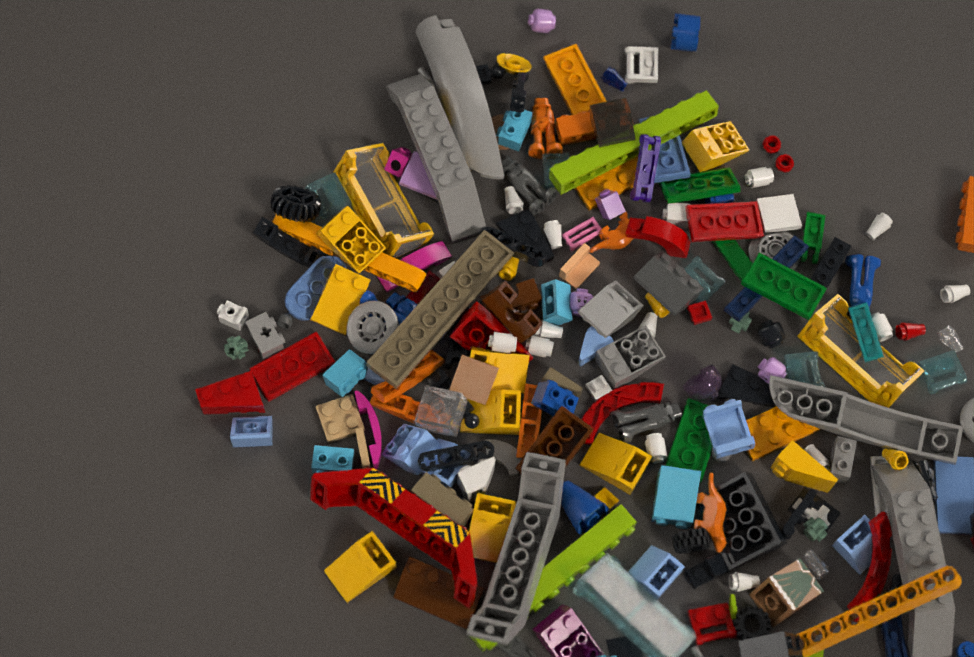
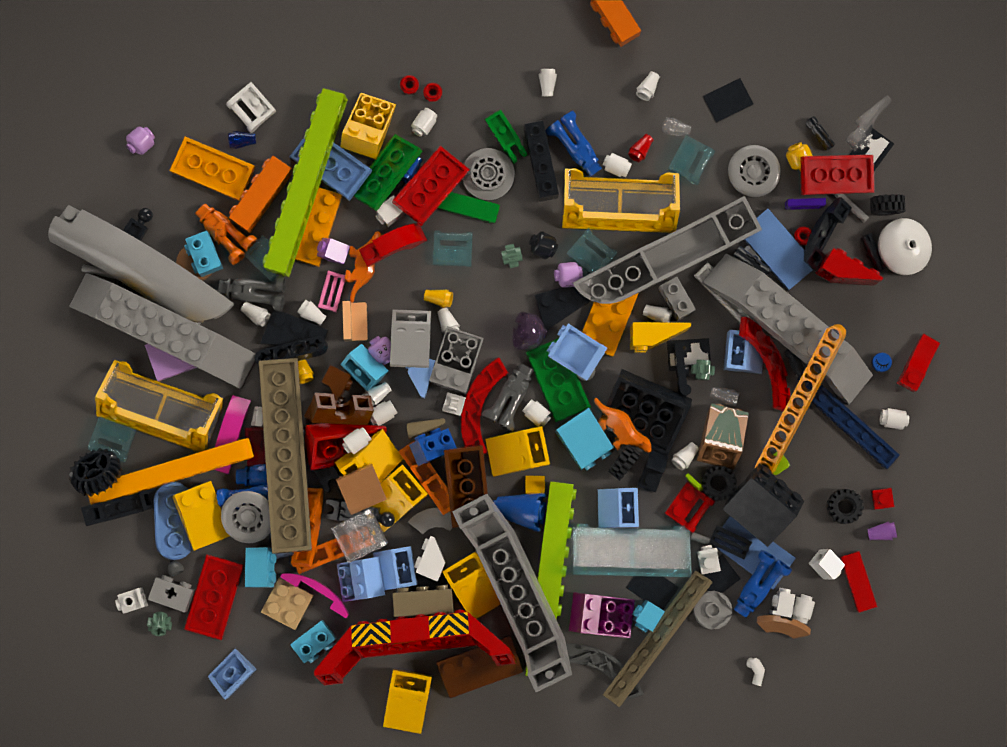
camera: 45 degrees left, 15 degrees up
(231, 395) = (192, 662): red wedge -> none
(351, 239) = (167, 464): yellow slope -> none
(362, 448) = (326, 612): tan tile -> none
(403, 156) = (136, 356): dark pink bracket -> none
(455, 452) = (404, 561): black beam -> none
(513, 63) = (151, 197): yellow dish -> none
(518, 93) = (183, 227): black plate -> none
(612, 122) = (277, 185): clear smoke slope -> none
(646, 168) = (334, 196): dark purple plate -> none
(668, 283) = (434, 276): dark grey slope -> none
(685, 32) = (262, 50): blue brick -> none
(699, 312) = (475, 276): red plate -> none
(746, 298) = (502, 205): dark blue tile -> none
(779, 213) = (464, 139): white tile -> none
(783, 286) = (522, 202): green tile -> none
(866, 332) = (611, 180): teal tile -> none
(895, 458) = (716, 264): yellow cone -> none

